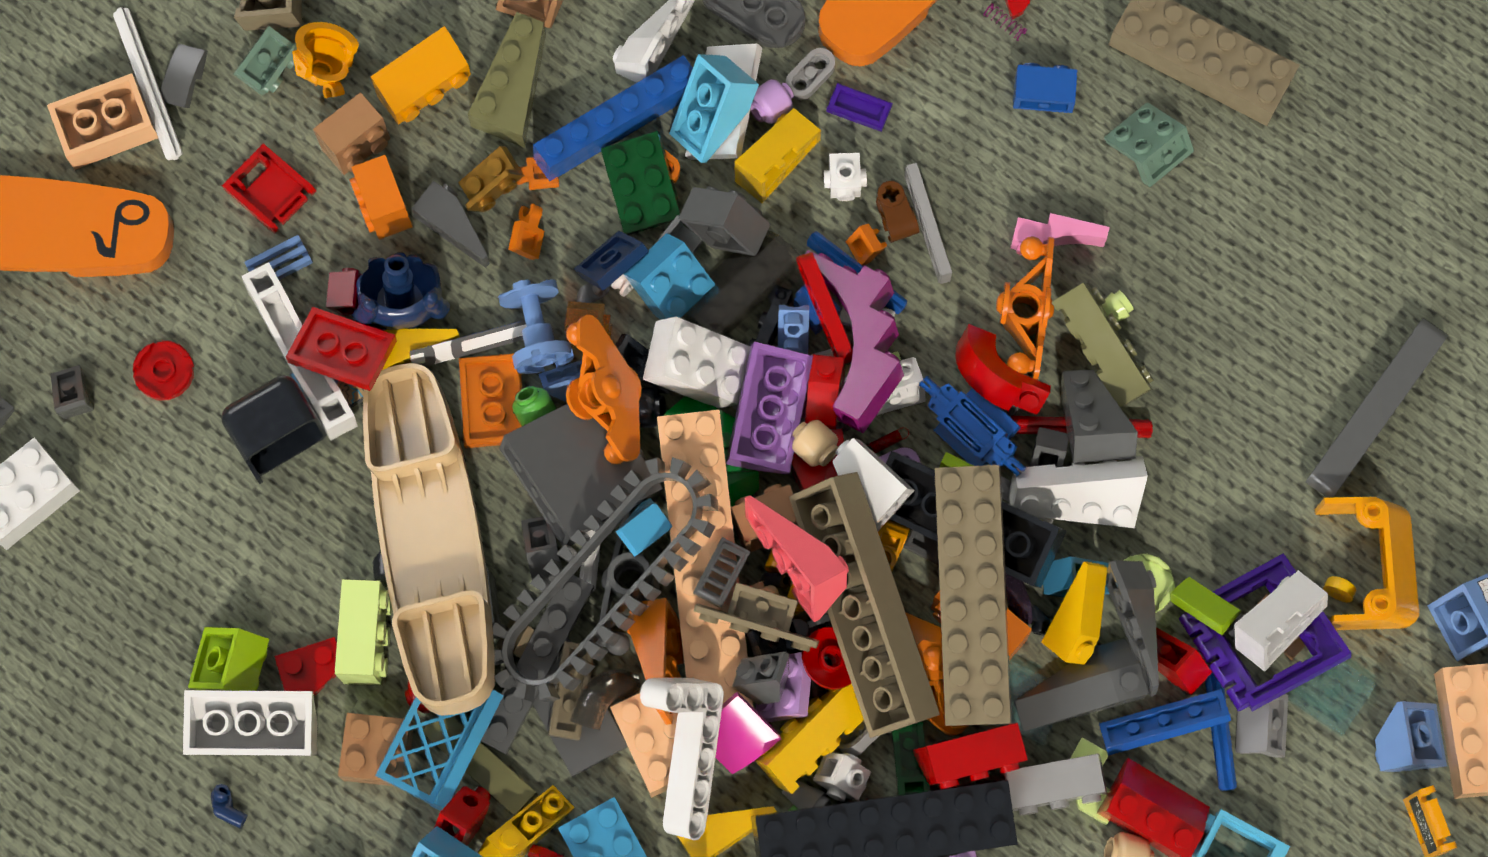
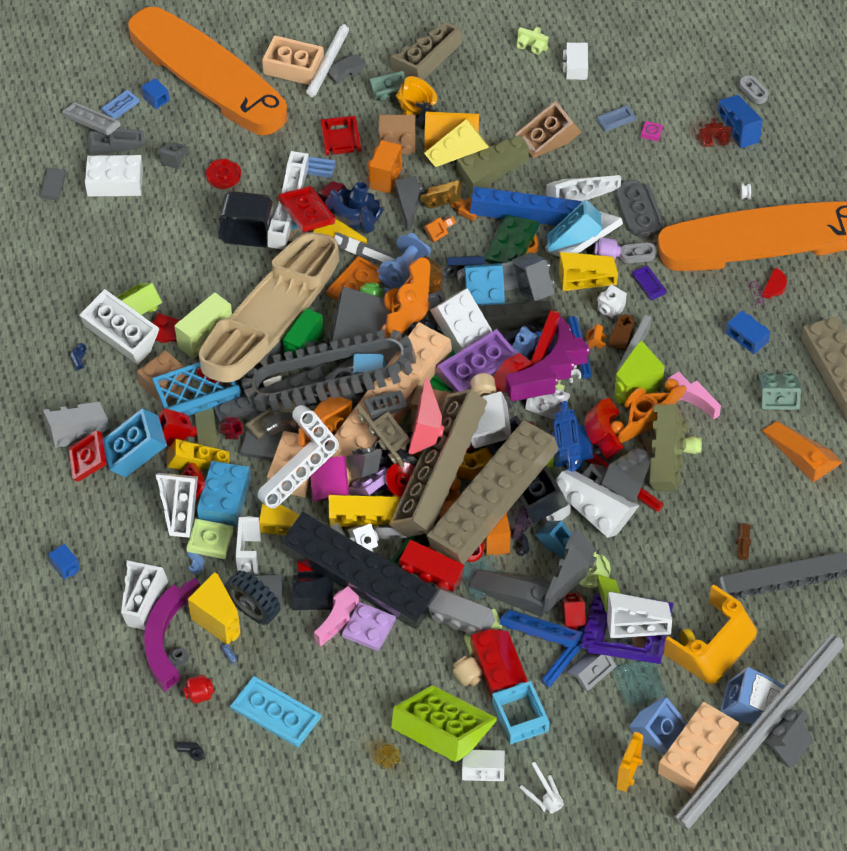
camera: 40 degrees right, 20 degrees down
(361, 66) = (426, 107): none -> black bracket
(448, 92) = (456, 144): none -> light yellow wedge
(508, 546) = (306, 329): none -> green brick
(531, 752) = (231, 428): none -> dark red gear
(975, 260) = (639, 371): none -> lime slope
(1079, 617) = (542, 549): yellow slope -> none
(1254, 208) = (804, 452): none -> orange wedge
(1288, 397) = (743, 541): none -> reddish brown axle

